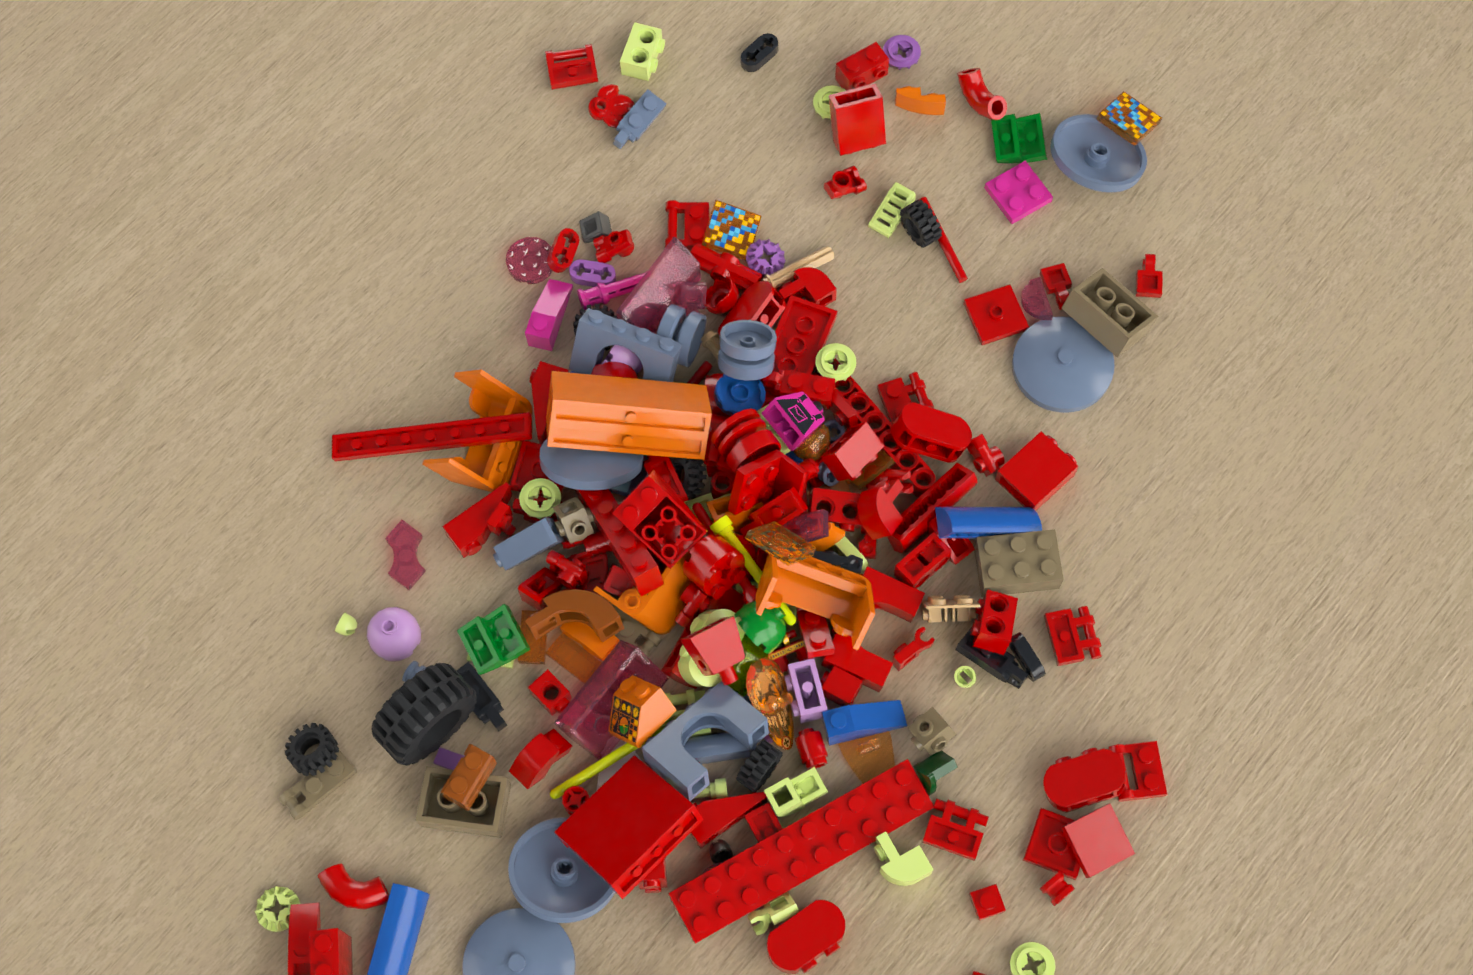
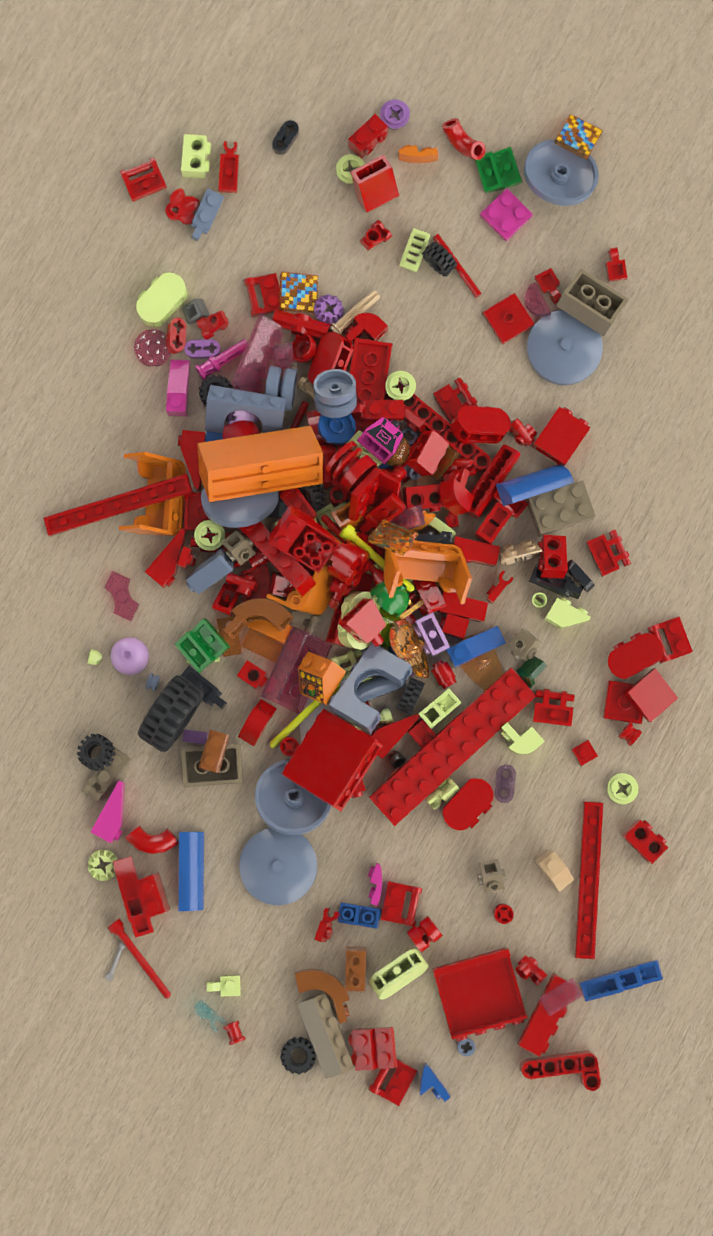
camera: 15 degrees left, 15 degrees up
(307, 843) = (111, 818): none -> dark pink slope
(556, 205) = (161, 299): none -> yellowish green brick
(680, 75) = (229, 169): none -> red plate
(865, 920) = (505, 783): none -> plate
(996, 705) = (564, 615): none -> yellowish green slope

